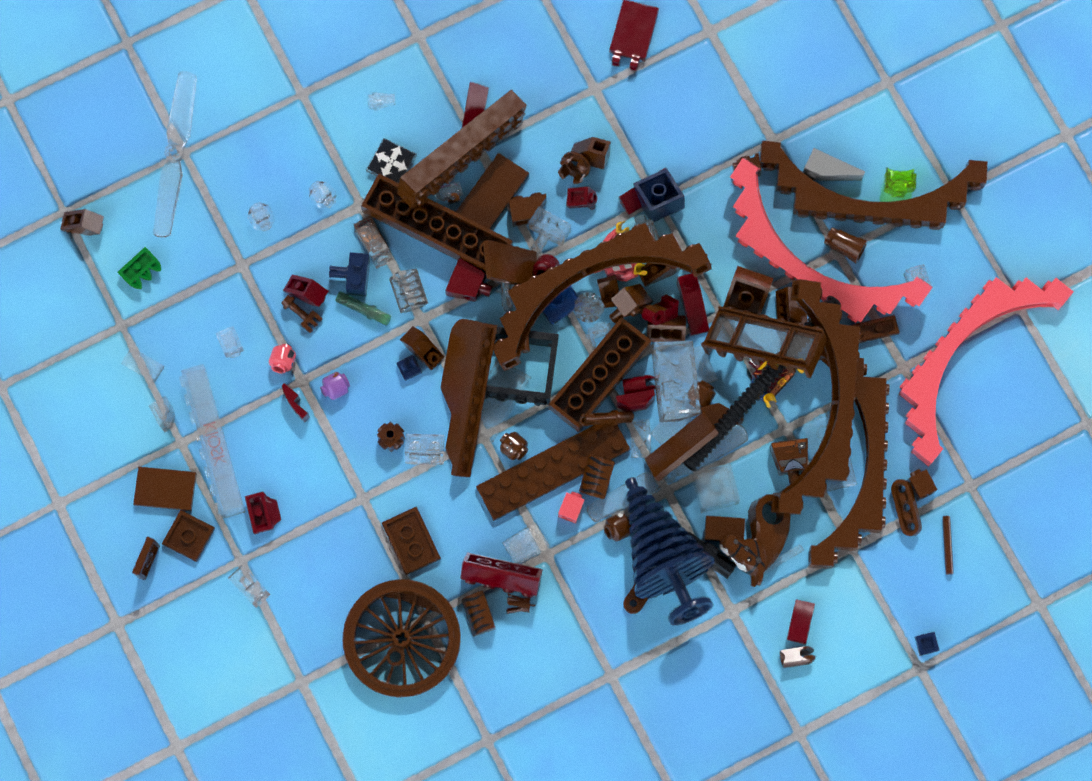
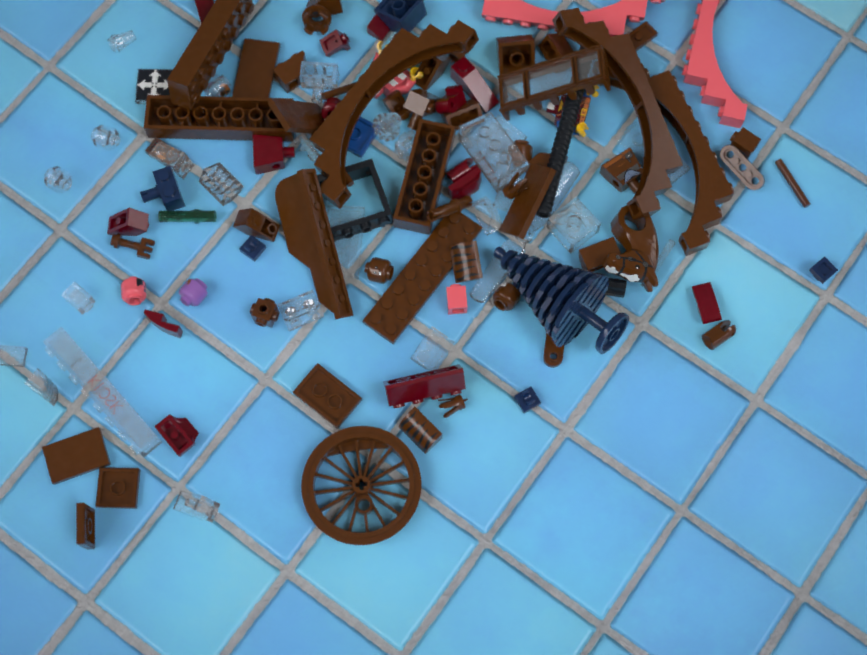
camera: 25 degrees left, 5 degrees down
(563, 250) = (338, 91): none -> reddish brown bar
(589, 632) = (527, 400): none -> dark blue tile
(673, 428) = (511, 190): none -> reddish brown piece

